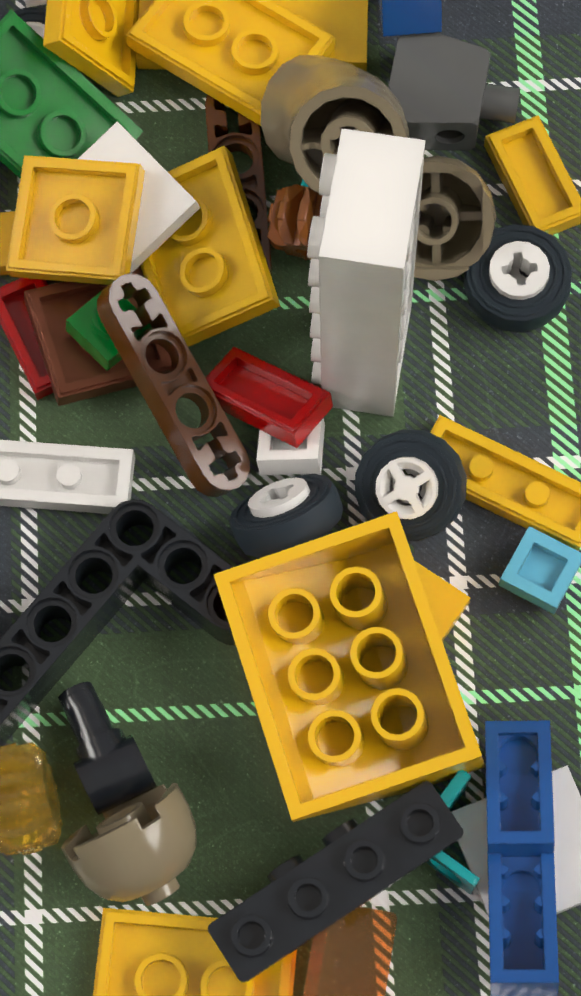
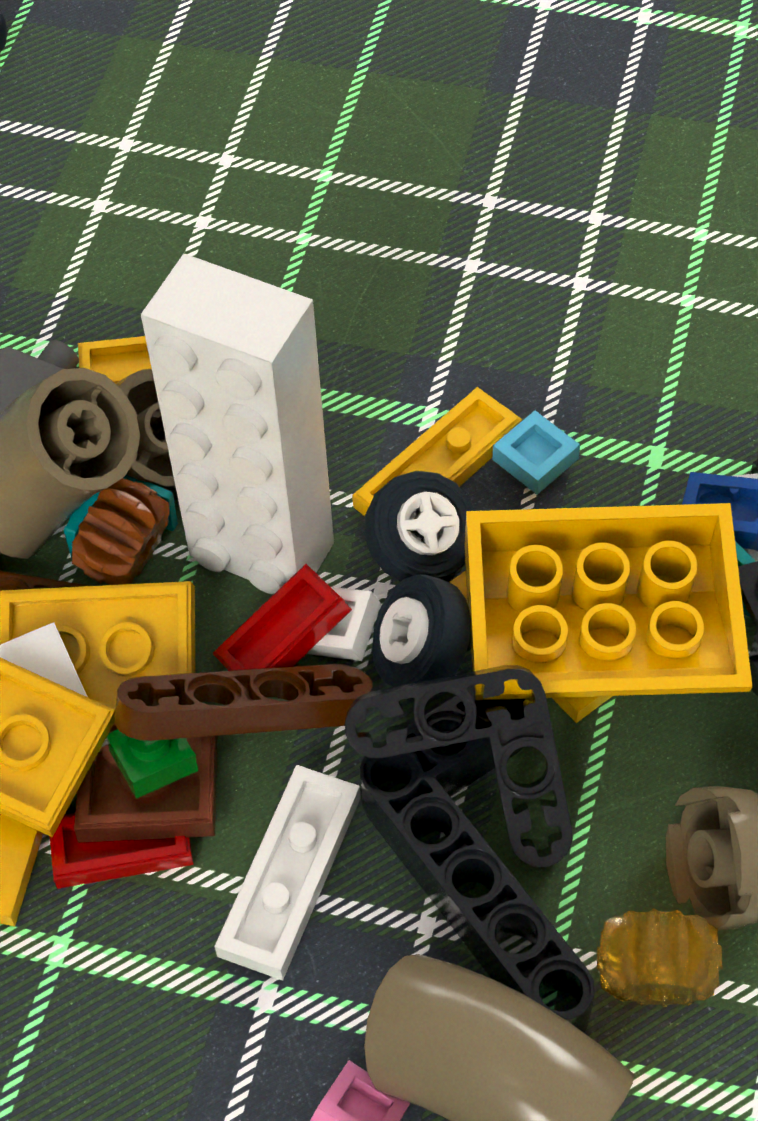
camera: 75 degrees left, 15 degrees down
(108, 761) = (634, 870): black pin -> none
(187, 602) = (505, 735): none -> black beam

